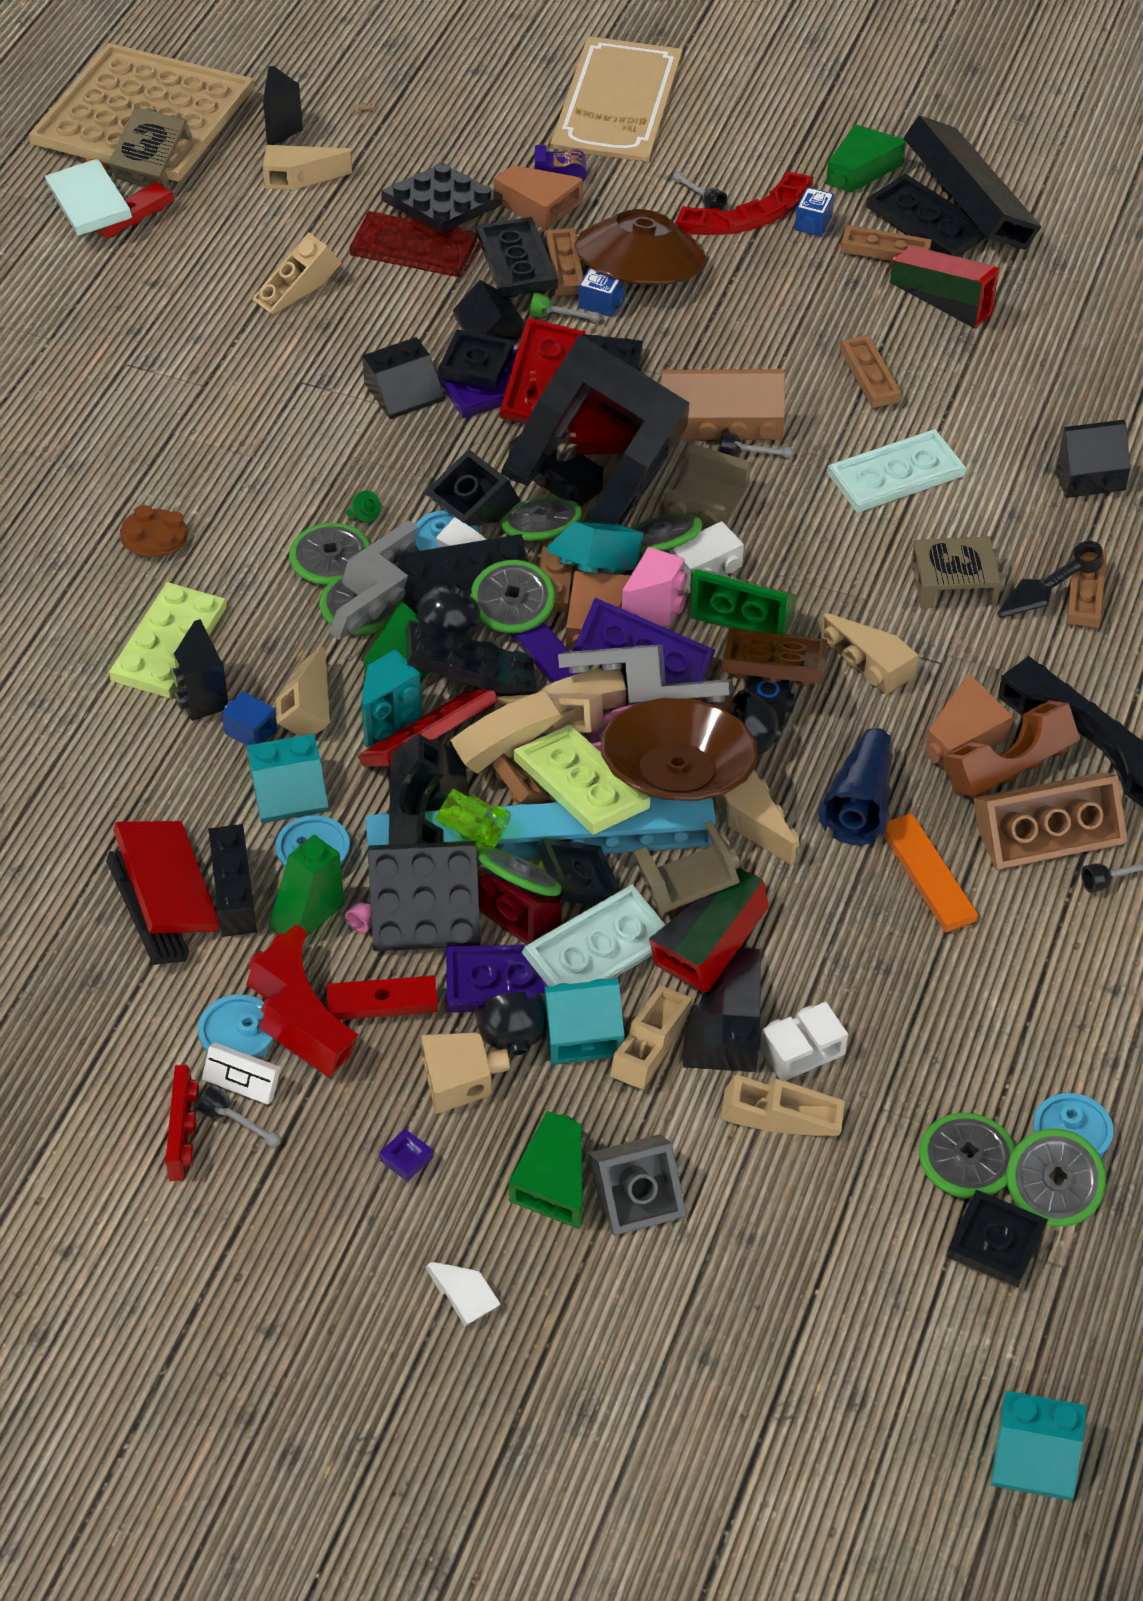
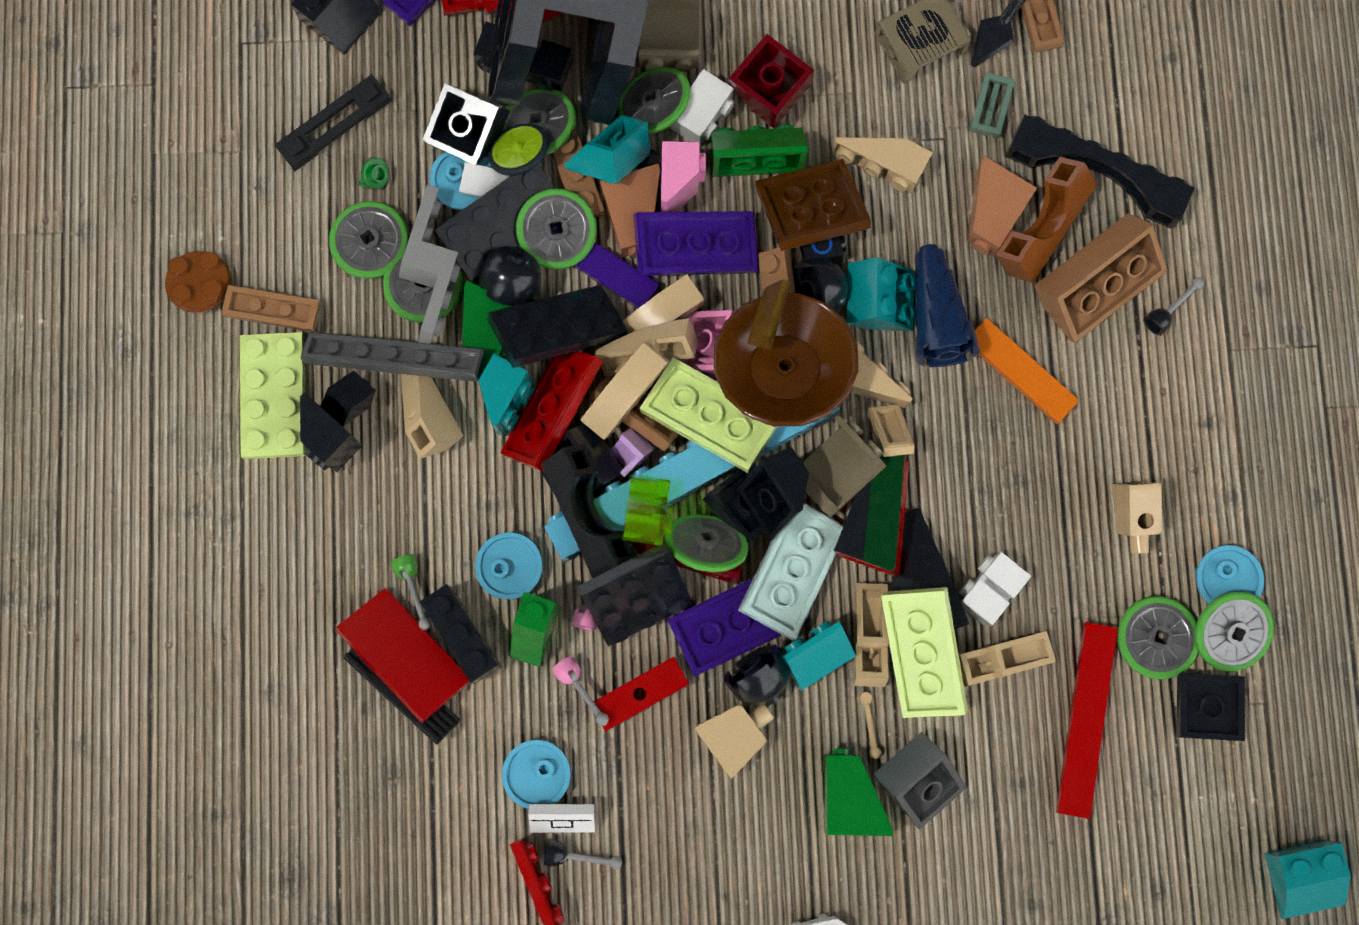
camera: 25 degrees left, 30 degrees up
(208, 572) = (271, 308): none -> medium nougat plate
(214, 814) = (405, 569): none -> hinge
(240, 655) = (348, 398): none -> black brick
(249, 720) = (390, 459): blue brick -> none
(287, 778) = (454, 508): teal slope -> none
(293, 1010) = (582, 749): red arch -> none
(297, 636) = (394, 356): none -> dark grey tile
(322, 957) = (568, 672): none -> hinge
(392, 454) = (299, 150): none -> black container
(406, 1155) = (729, 834): dark purple plate -> none
(490, 788) = (631, 450): none -> lavender panel
(510, 524) = (518, 149): none -> lime wheel
(612, 852) = (776, 491): none -> black slope
(617, 1097) = (865, 699): none -> tan hinge
(645, 673) = (716, 279): light grey bracket -> none
(682, 707) = (769, 315): none -> pearl gold slope
(697, 1055) = (924, 652): none -> yellowish green plate
(761, 863) = (891, 430): none -> tan tile
(785, 552) = (771, 80): none -> dark red slope
(806, 754) = (880, 295): none -> teal slope
(849, 1204) = (1086, 720): none -> red tile
(980, 656) = (986, 128): none -> sand green tile
(994, 1021) = (1136, 502): none -> tan torso

